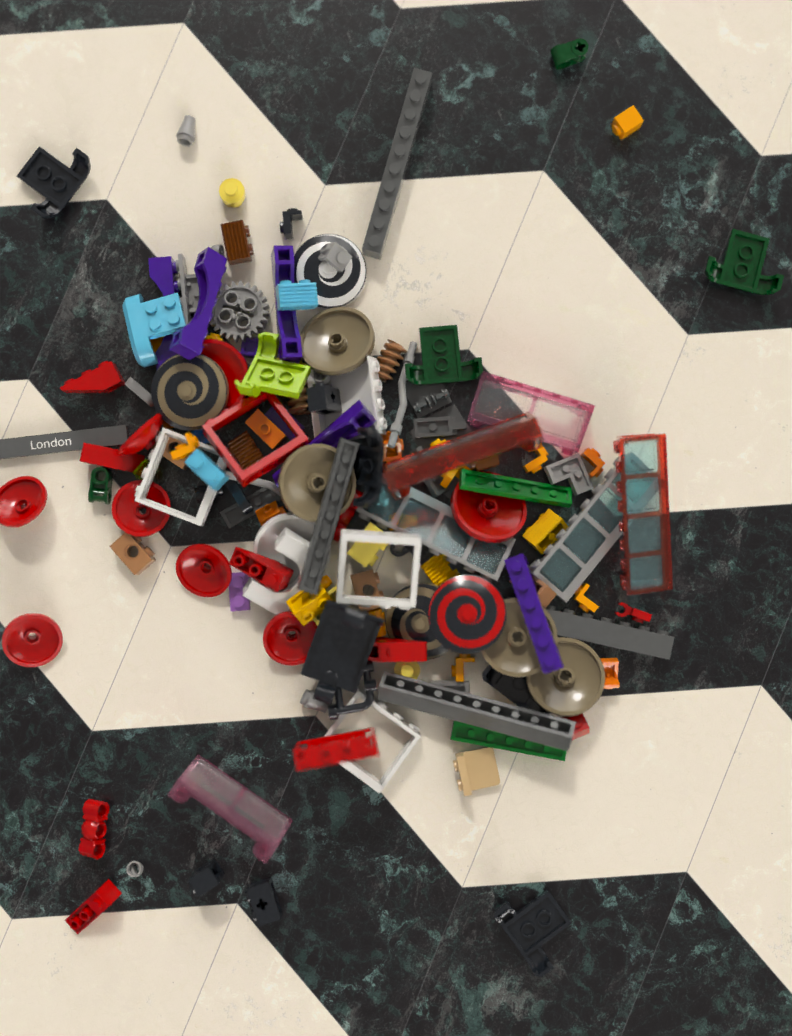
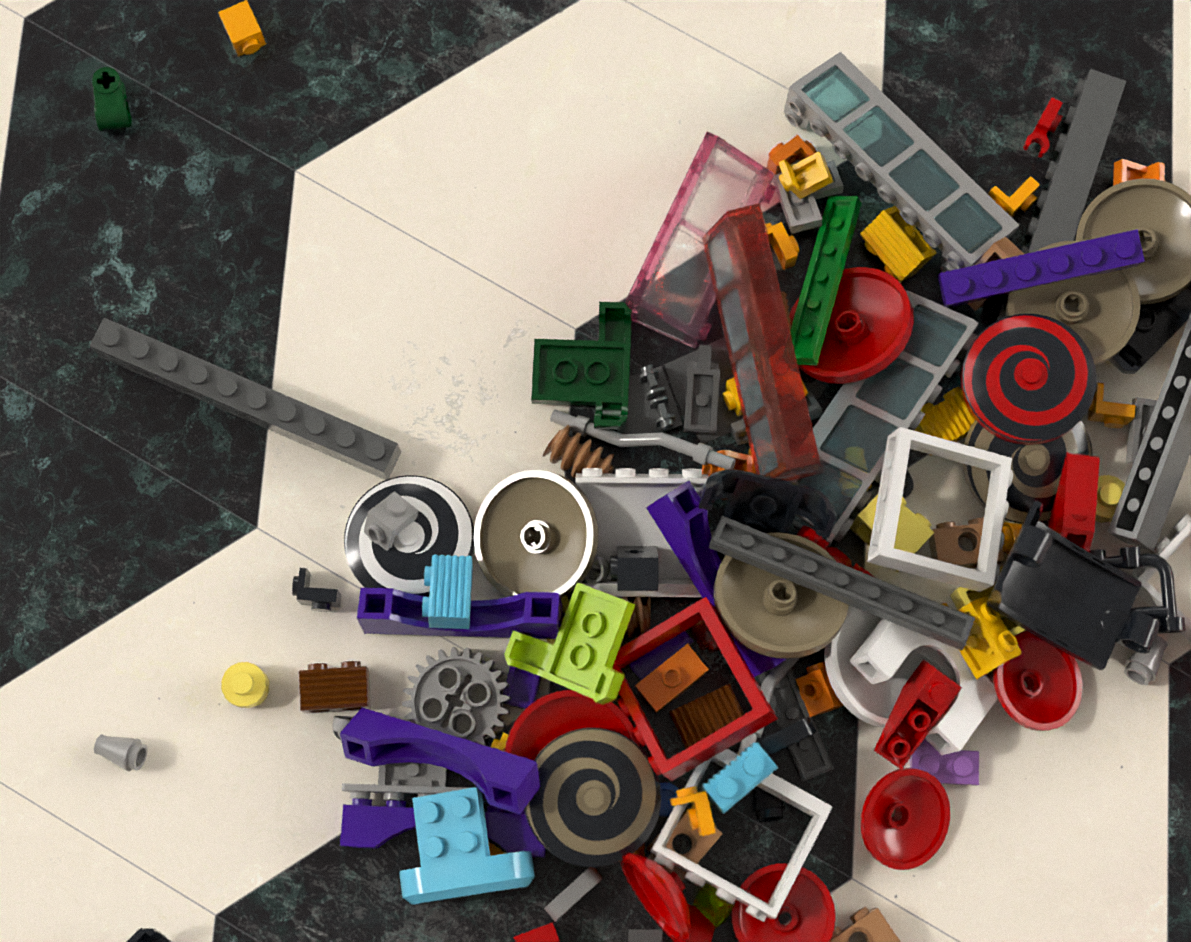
camera: 80 degrees left, 10 degrees down
(578, 469) = (805, 175): none -> yellow bracket
(644, 513) = (889, 81): window -> none

